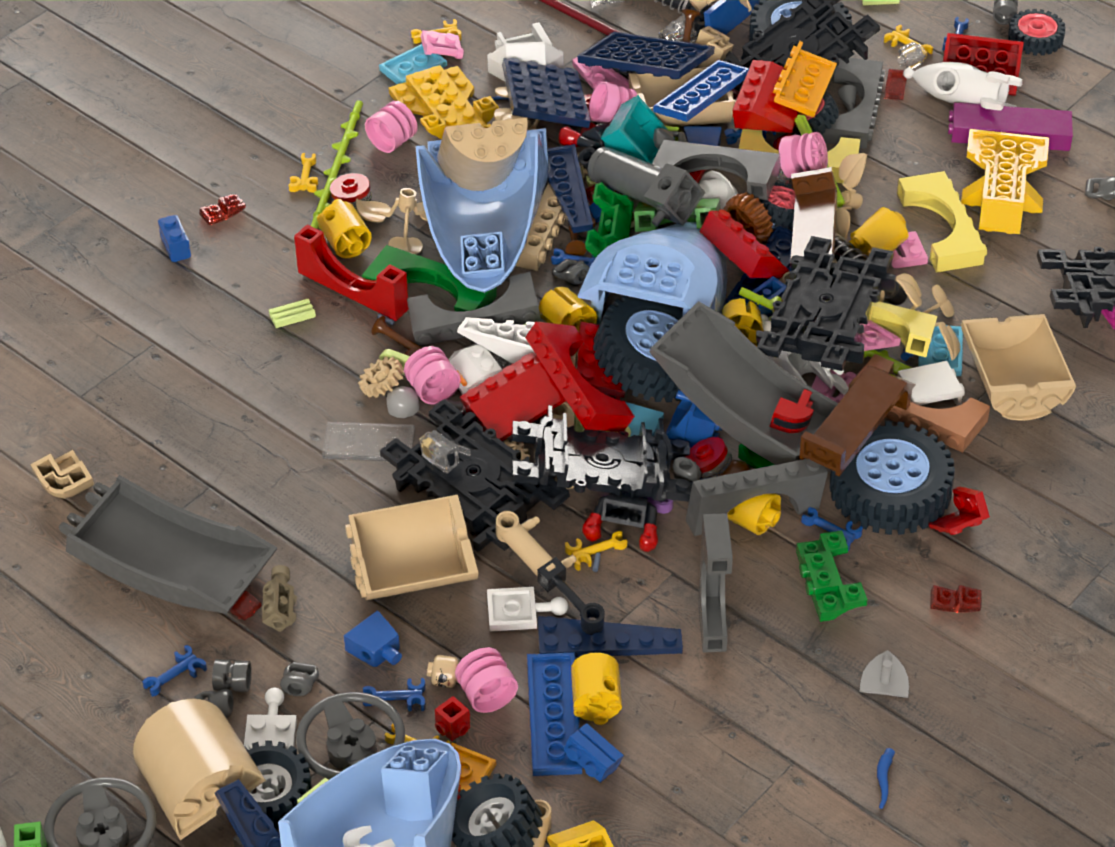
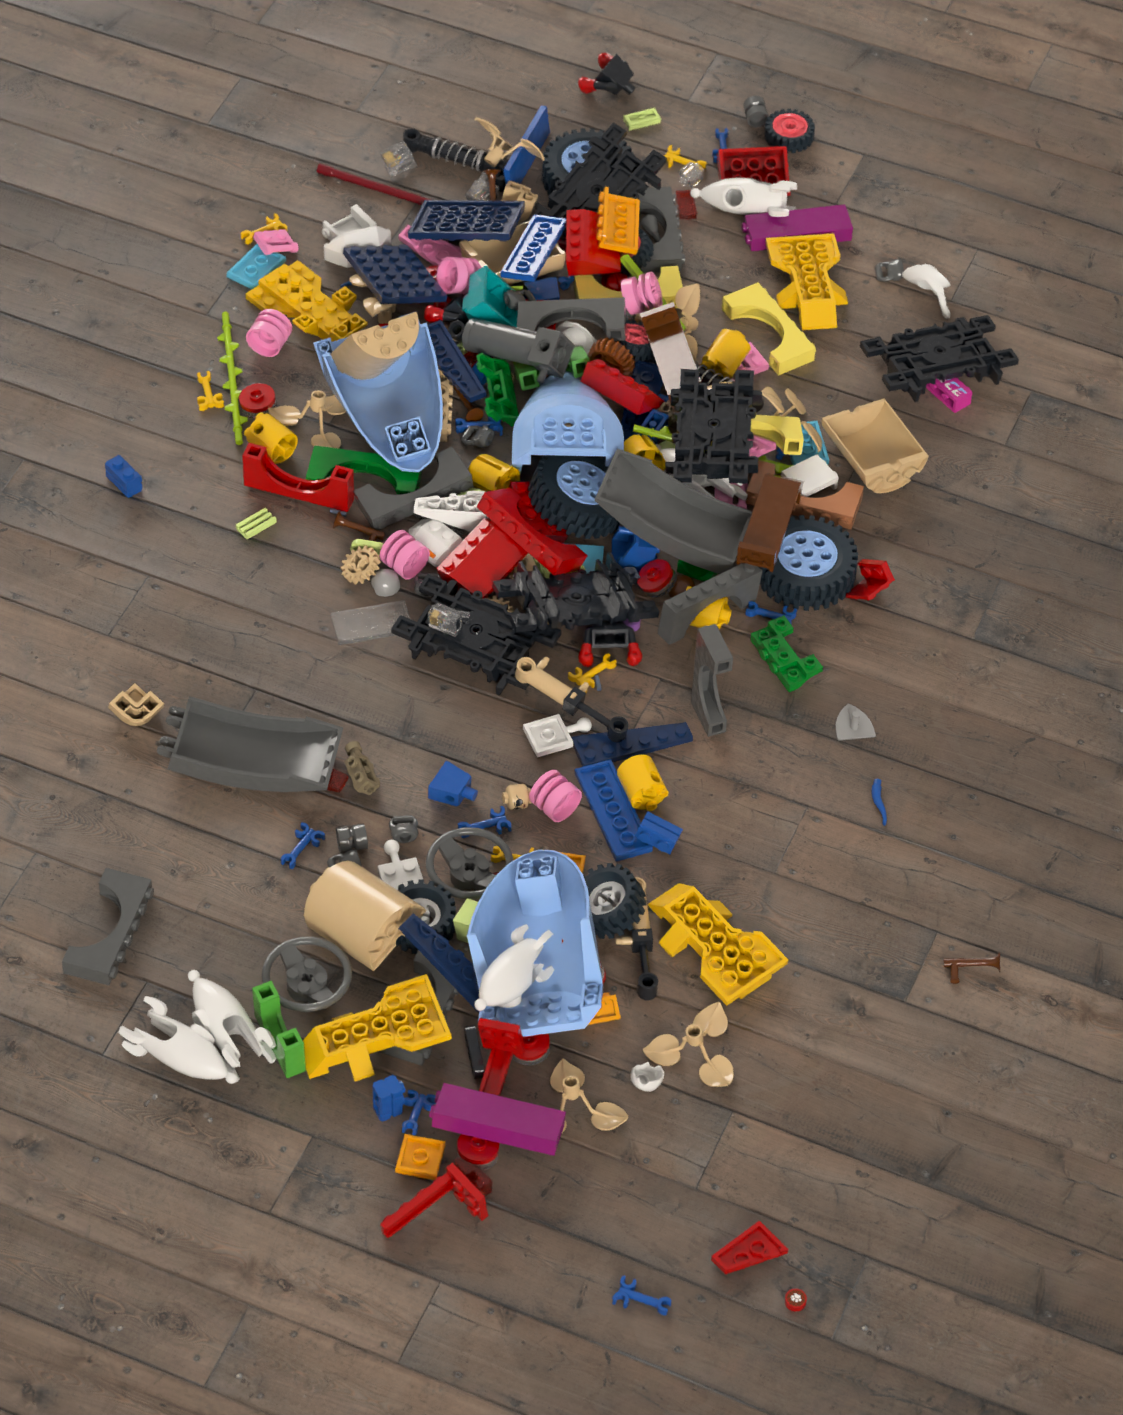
camera: 20 degrees left, 5 degrees up
(226, 208) = (152, 439): clear red slope -> none
(410, 548) = (453, 704): tan cylinder -> none
(452, 719) = (540, 832): red brick -> none
(686, 469) = (645, 591): dark grey piece -> none
(793, 416) = (716, 529): red brick -> none
(960, 600) = (887, 652): clear red slope -> none

